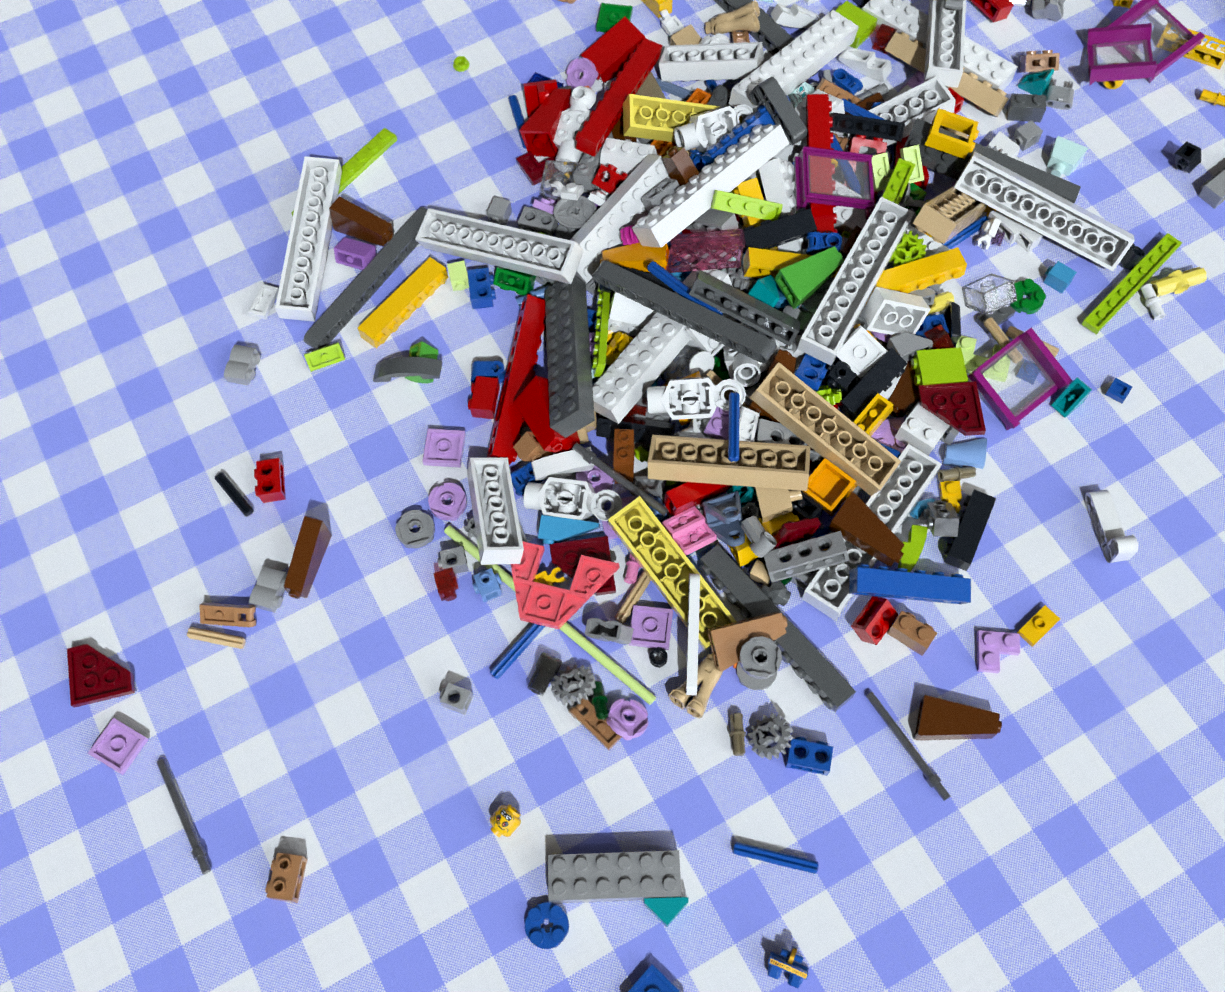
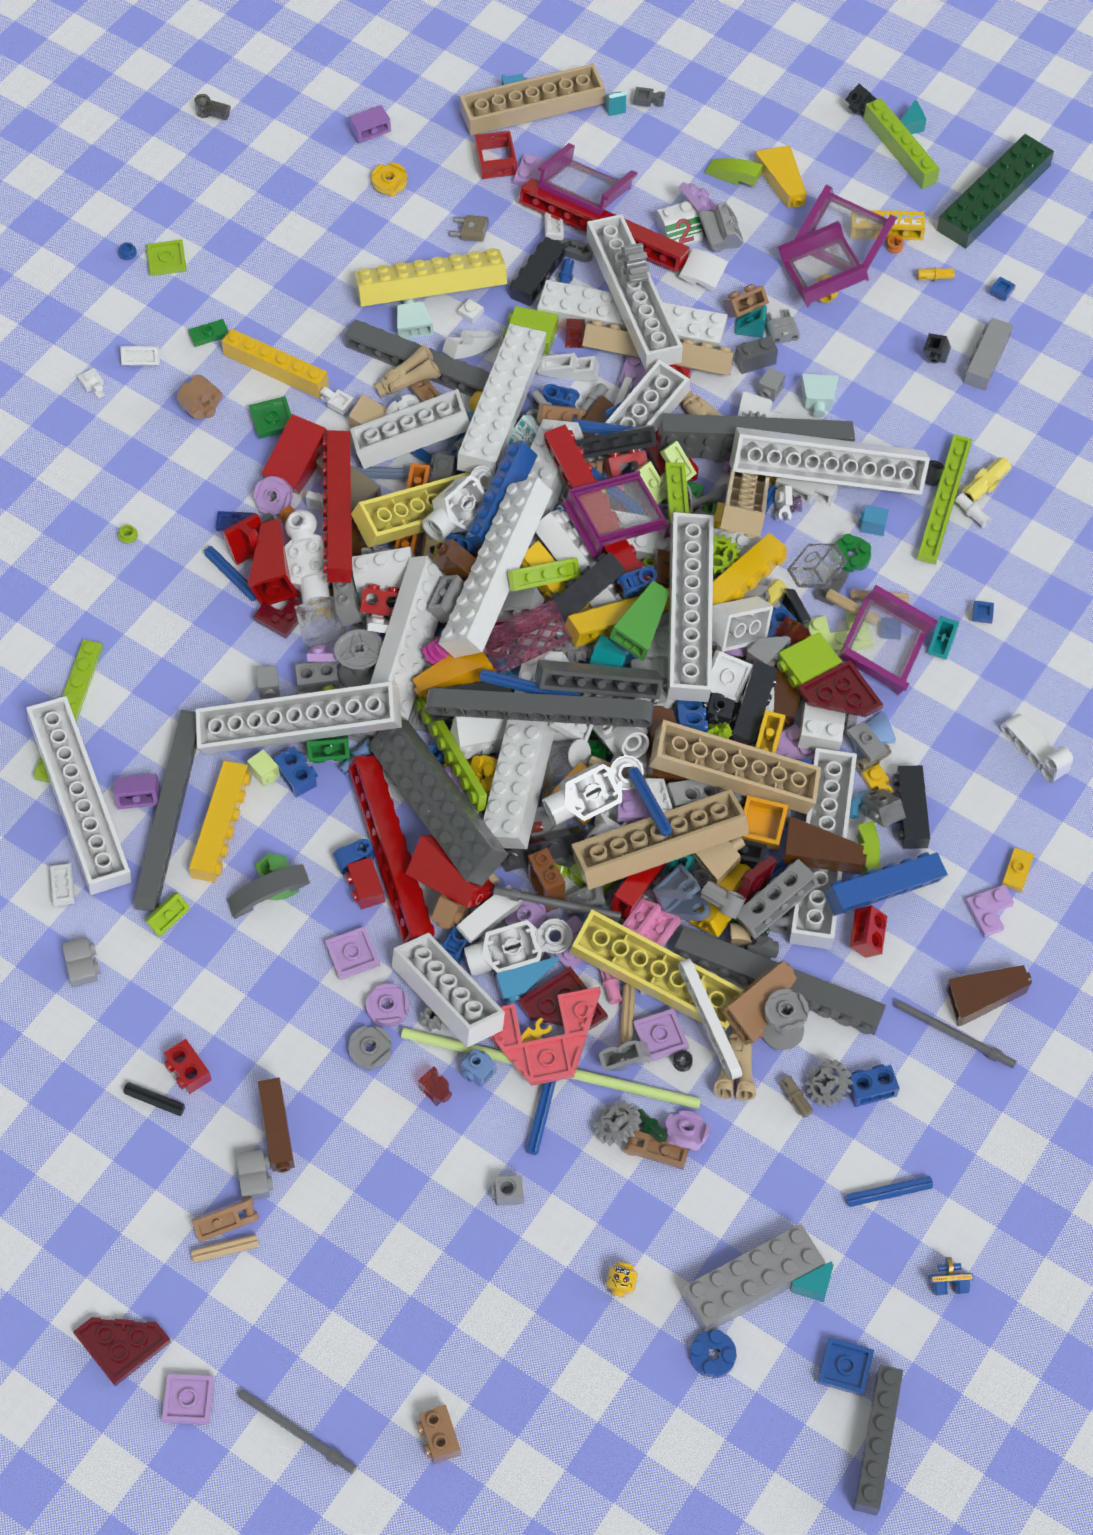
camera: 30 degrees left, 5 degrees down
(359, 223) = (123, 755): reddish brown slope -> none
(454, 553) = (432, 1052): light grey brick -> none
(546, 669) = (581, 1121): clear smoke piece -> none
(570, 191) = (341, 630): white plate -> none
(780, 109) = (522, 457): dark grey beam -> none
(912, 632) = (908, 927): medium nougat brick -> none
(947, 143) = (705, 430): yellow window -> none
(957, 457) = (867, 741): none -> light grey plate
(1017, 27) = (703, 269): none -> white slope
(1196, 60) = (897, 247): none -> orange bush

